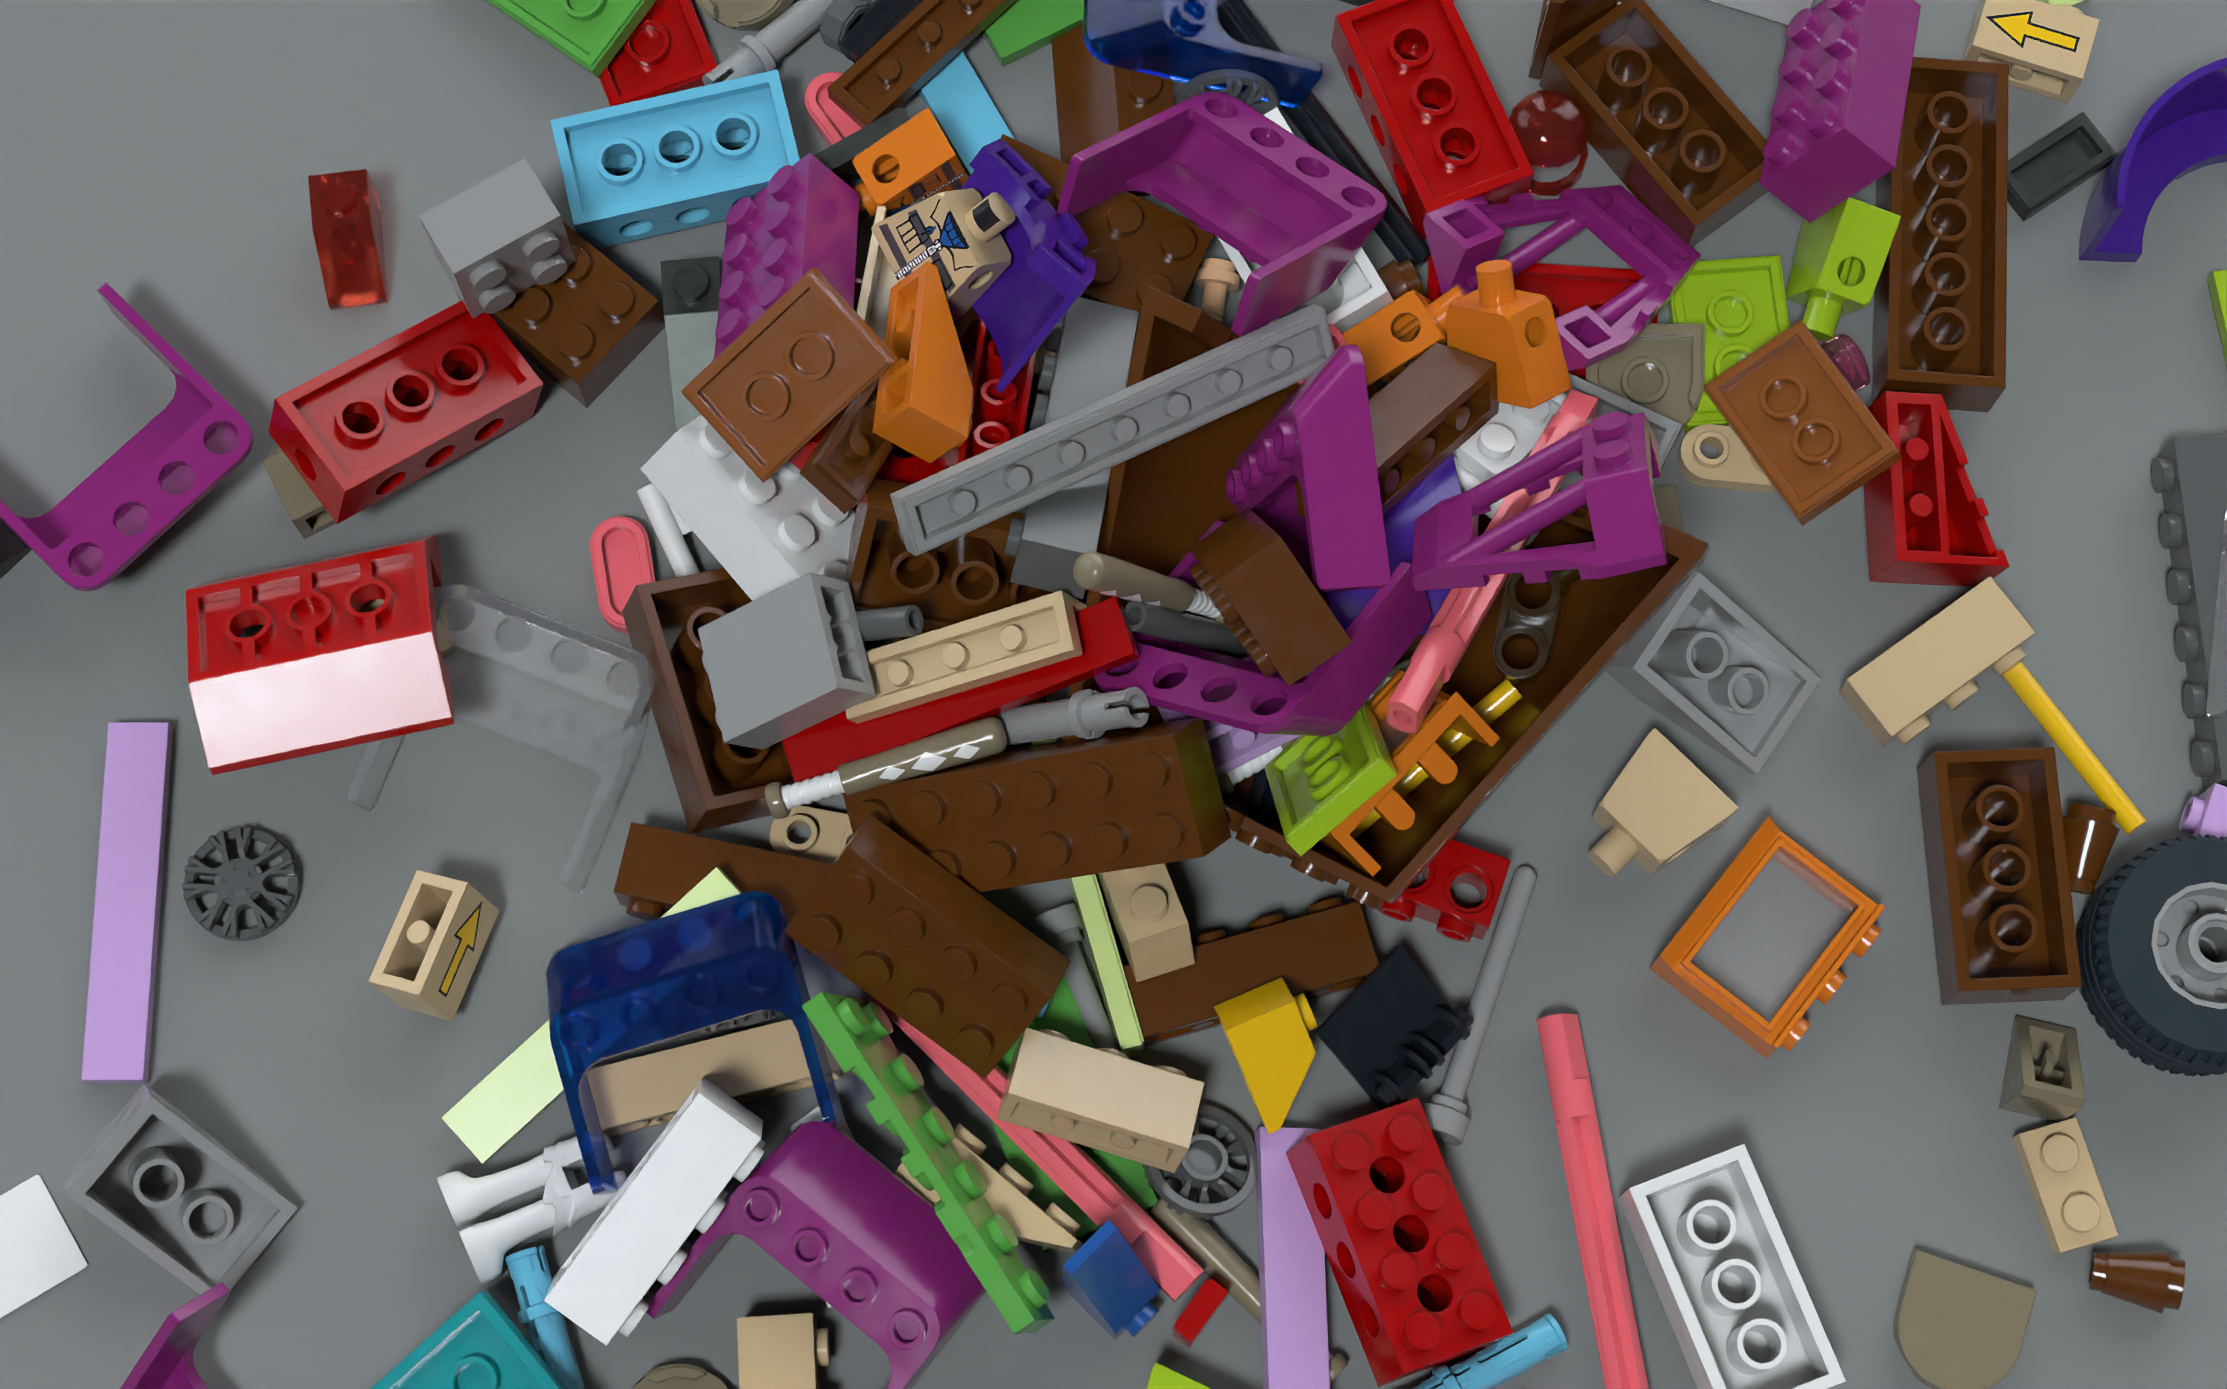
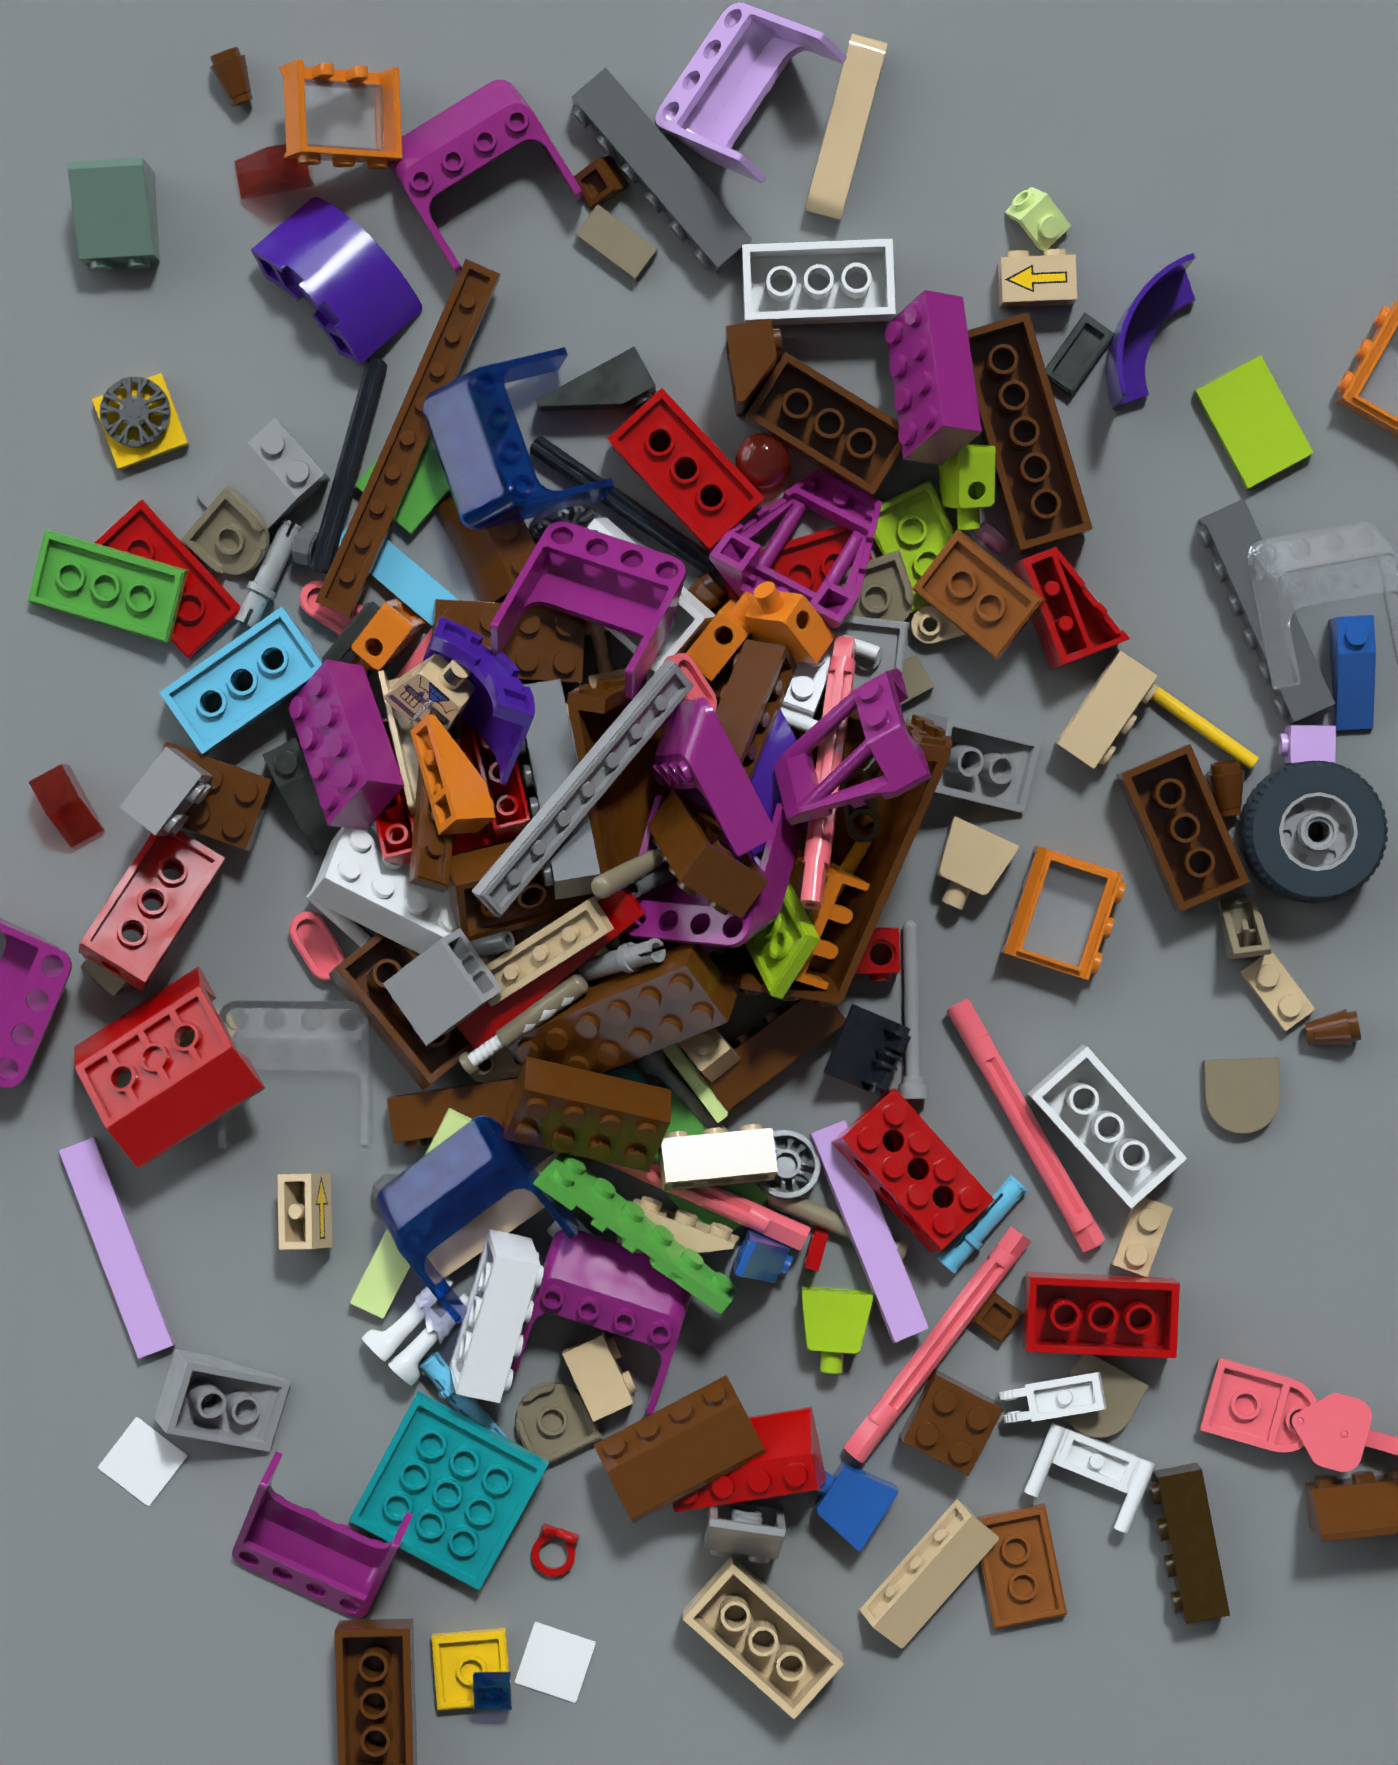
camera: 20 degrees left, 15 degrees up
(241, 884) = (176, 1212): dark grey wheel -> none
(789, 374) = (377, 822): dark orange tile -> none
(1270, 1046) = (800, 1090): yellow slope -> none

